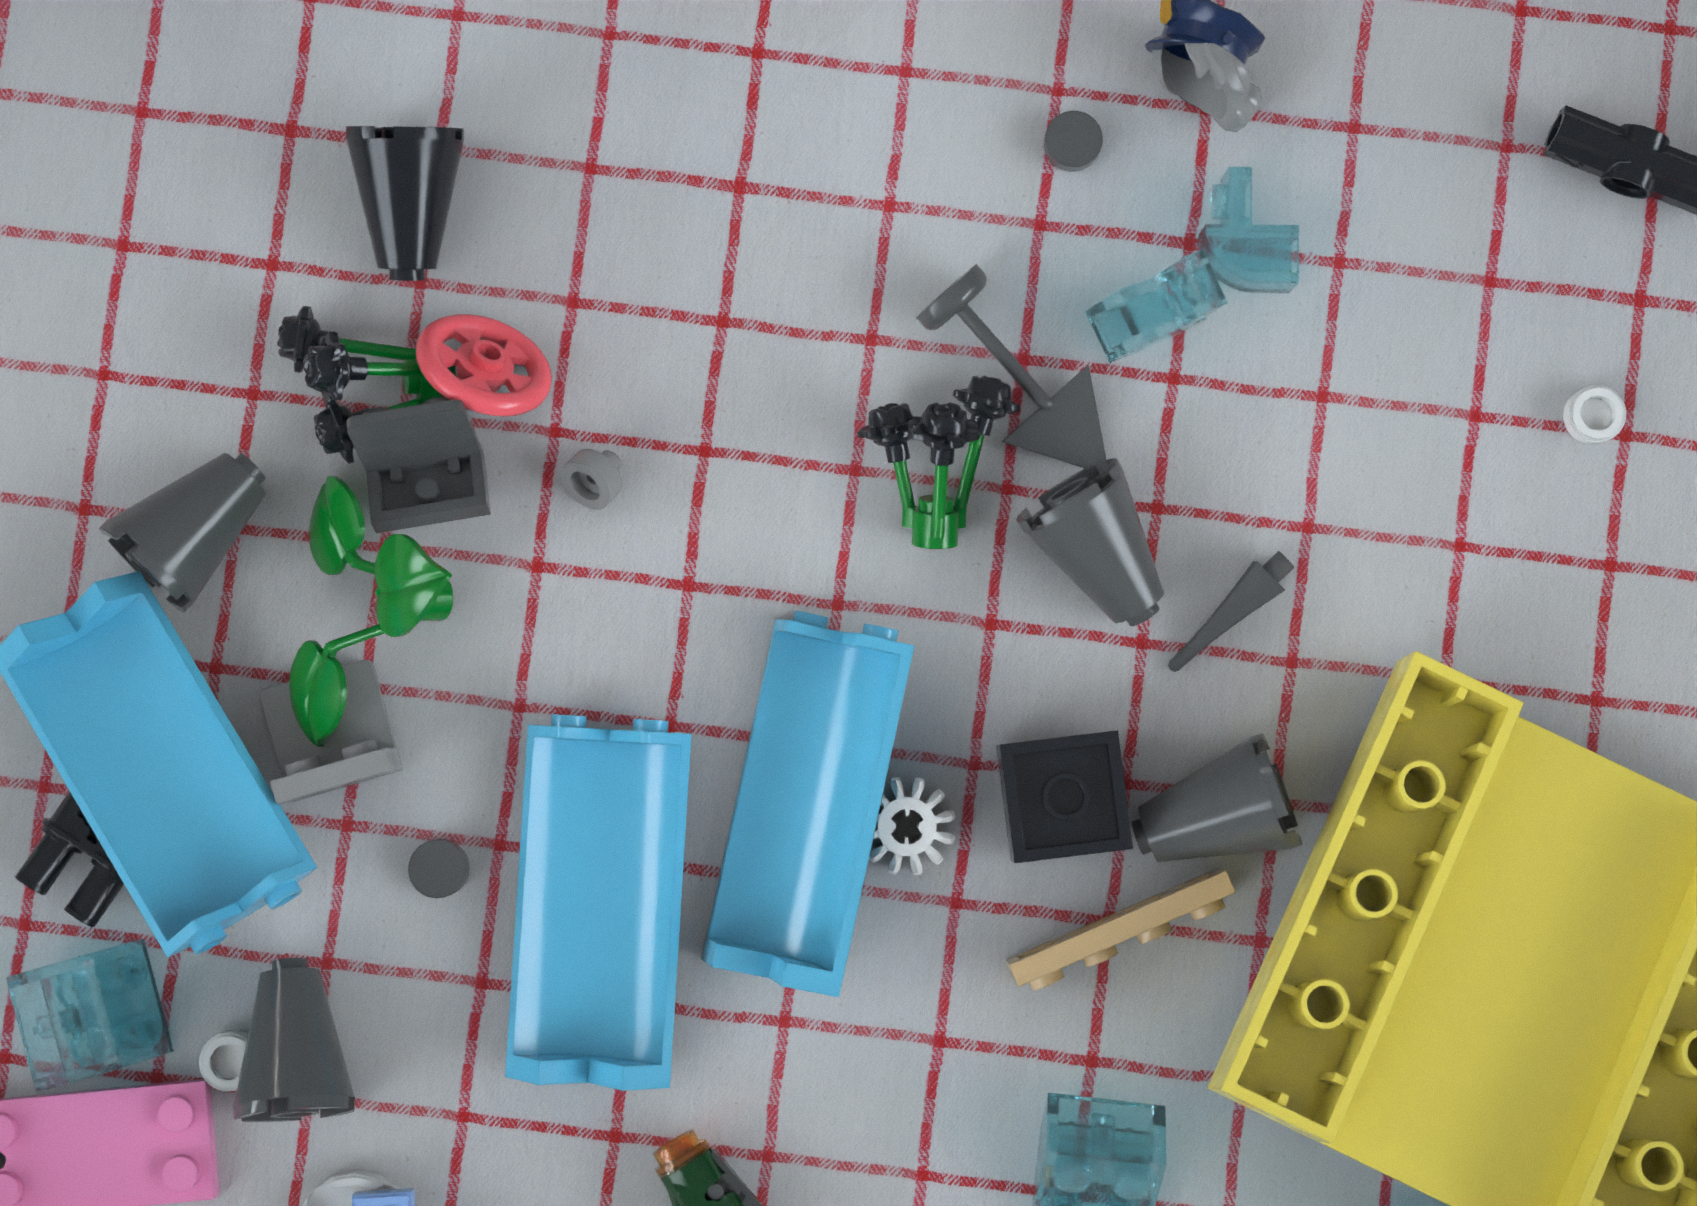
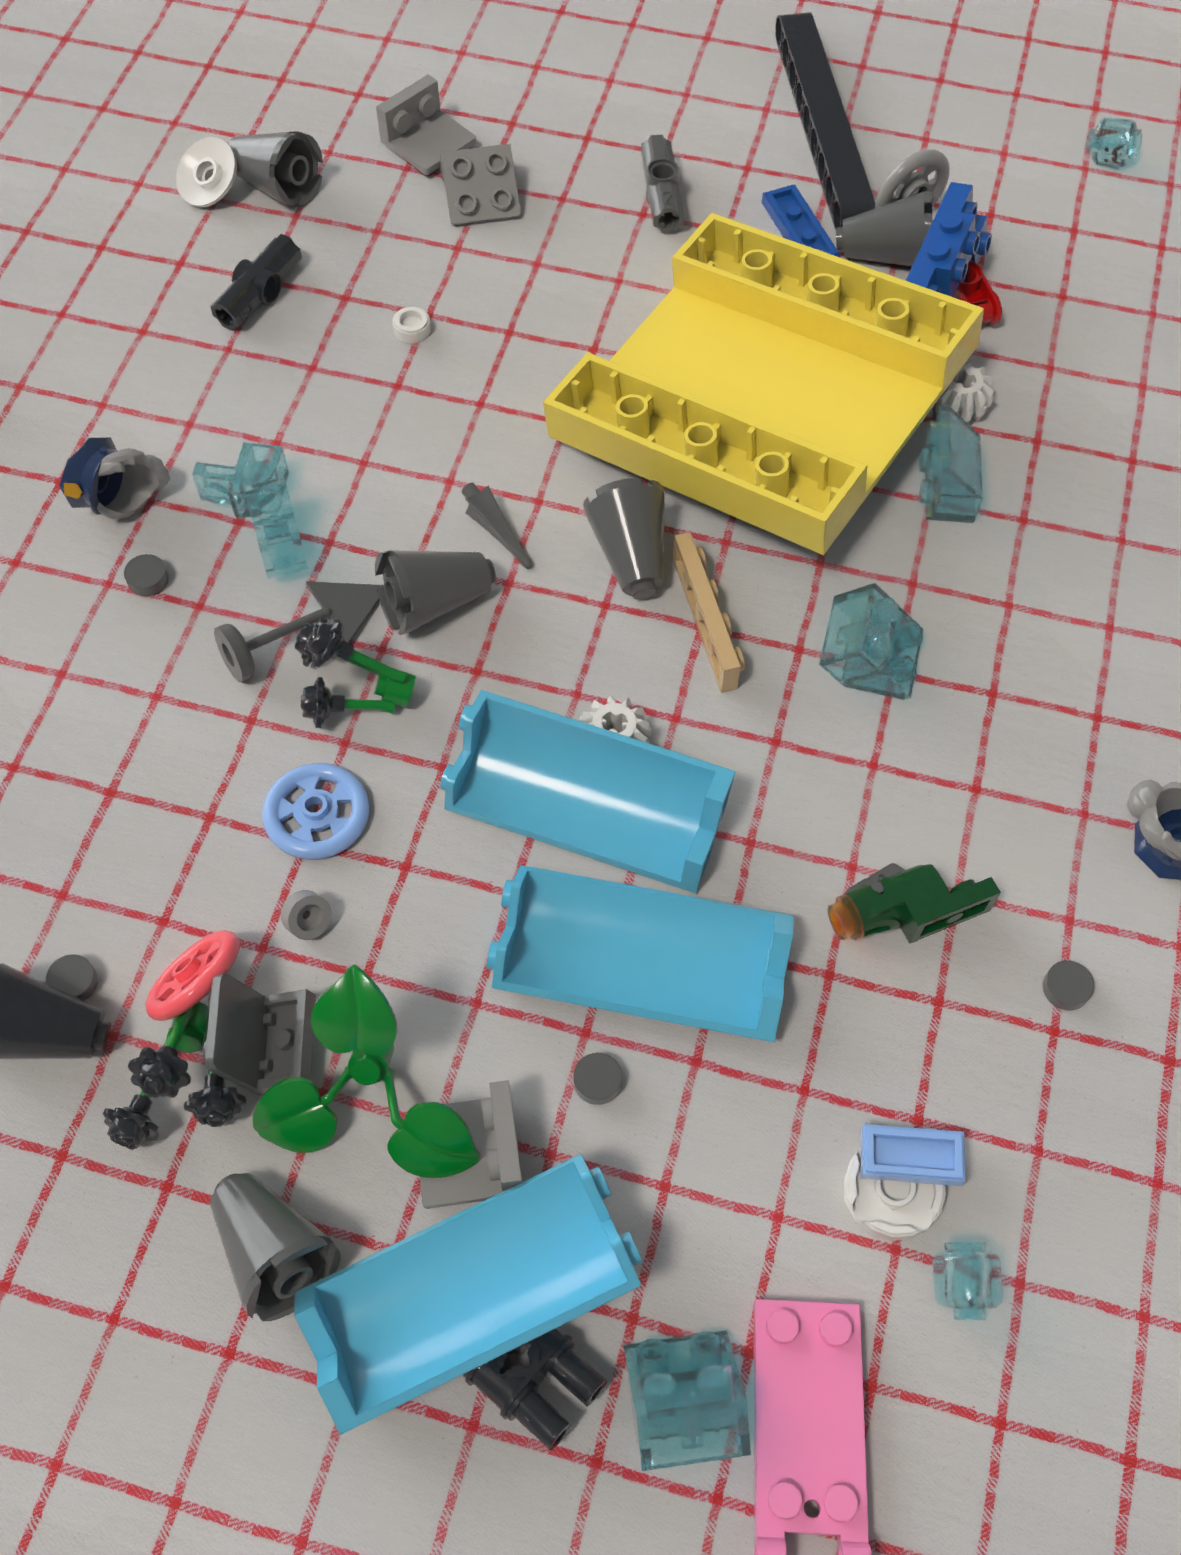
camera: 80 degrees left, 25 degrees down
(222, 1059) = (739, 1278): white tile -> none
(292, 1050) = (735, 1208): dark grey cone -> none
(477, 215) = (73, 975): none -> dark grey tile
(722, 498) = (307, 778): none -> light blue plate
(1064, 796) = (607, 626): black container -> none

